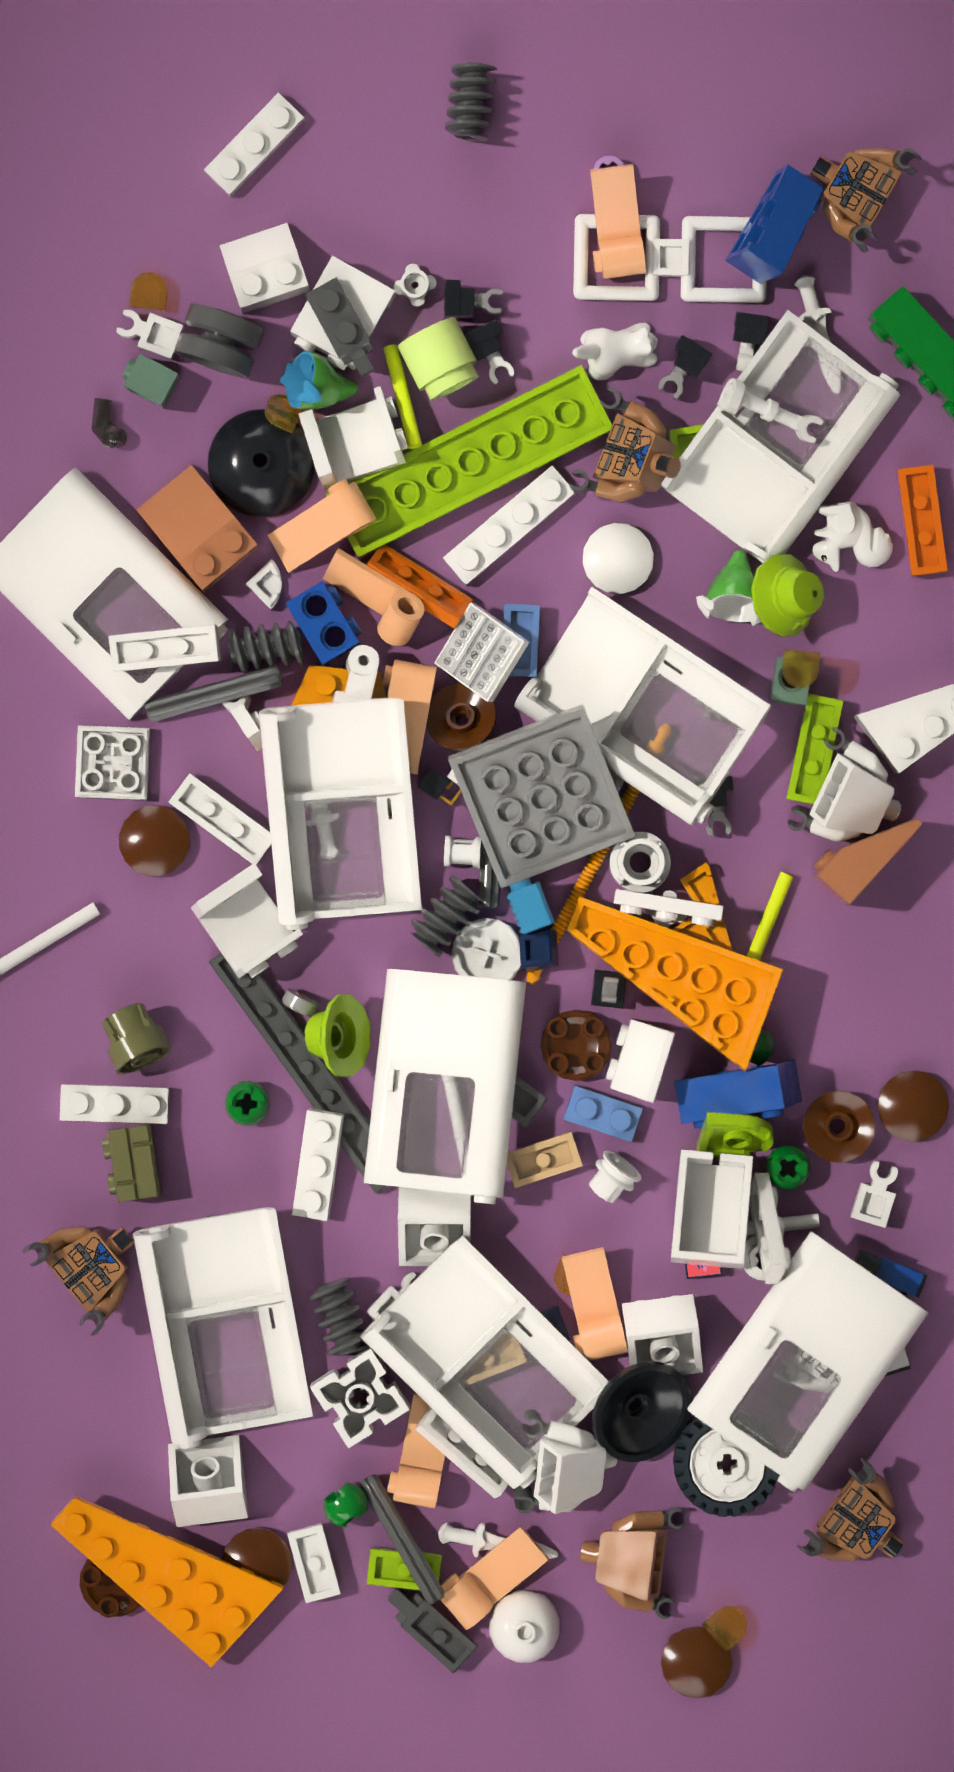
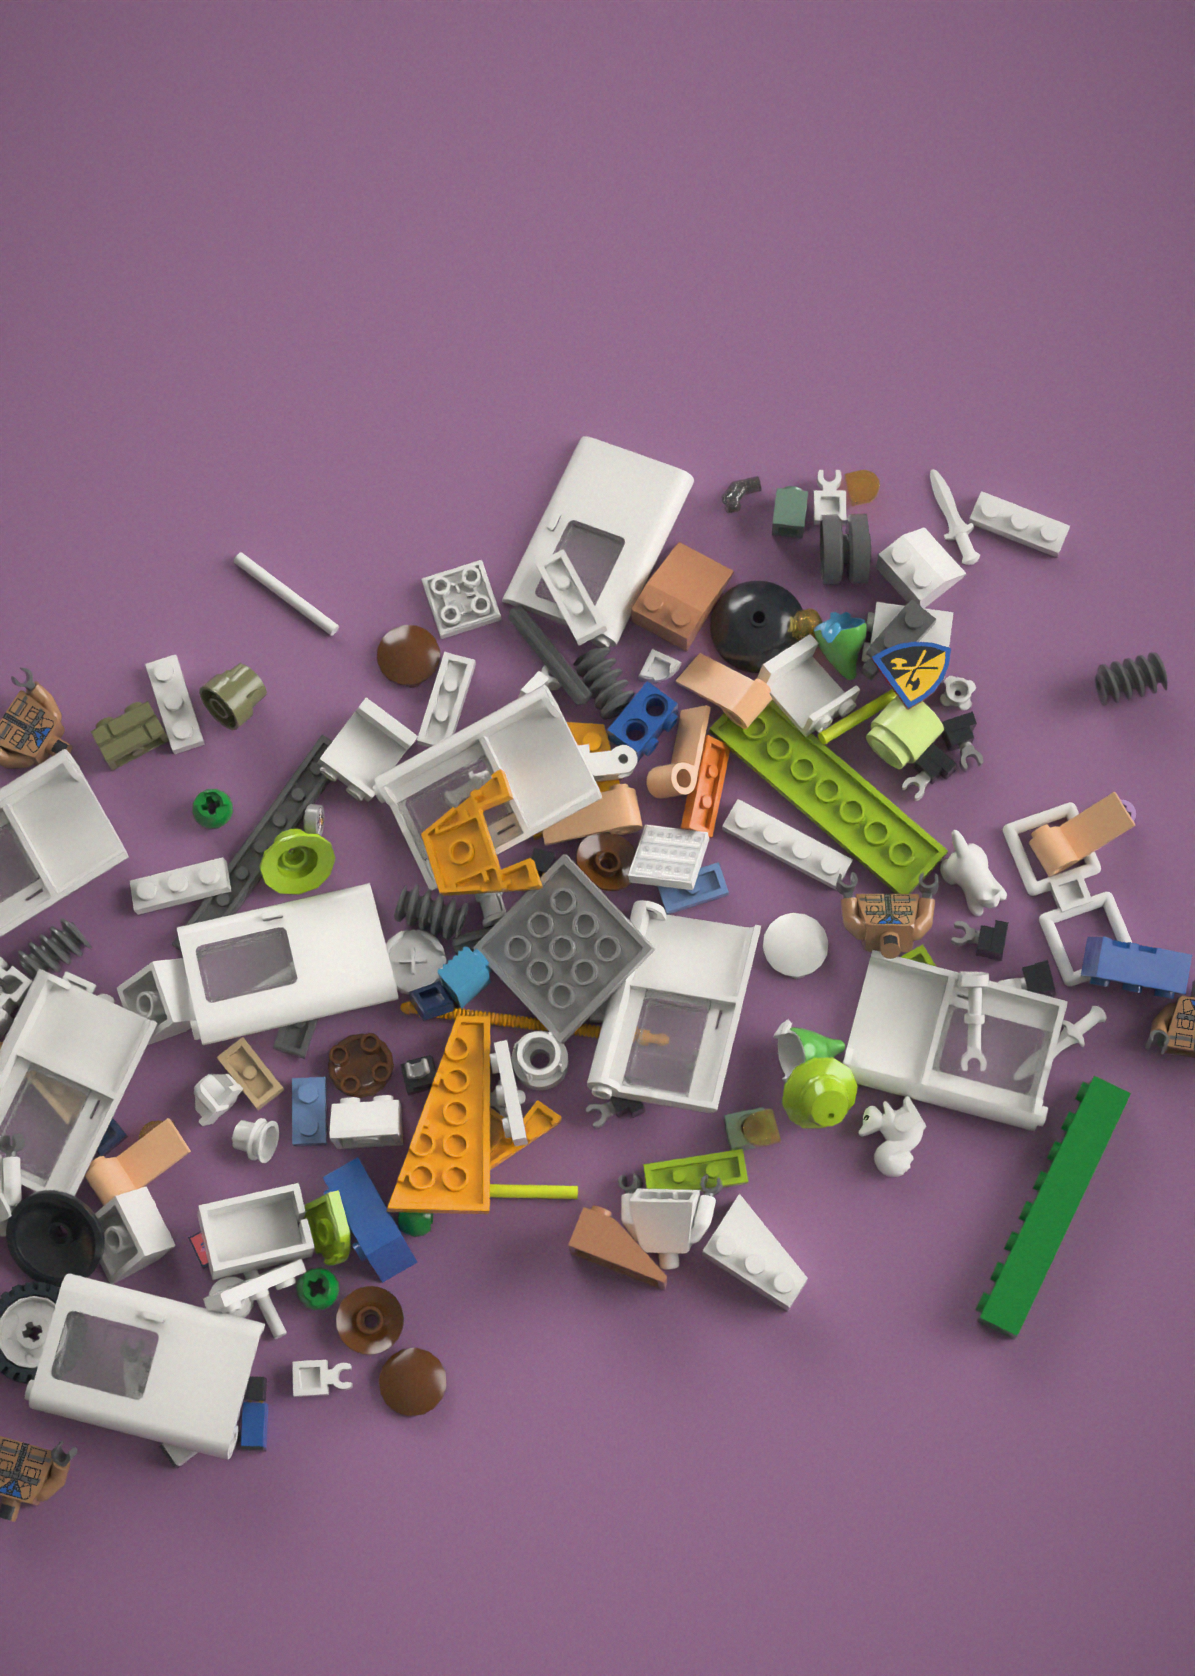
camera: 75 degrees right, 15 degrees down
(232, 210) = (957, 527): none -> white sword
(385, 323) = (913, 669): none -> shield
(400, 860) = (464, 852): none -> light orange wing
(553, 1203) = (215, 1096): none -> white piece
(922, 520) = (933, 1192): orange plate -> none

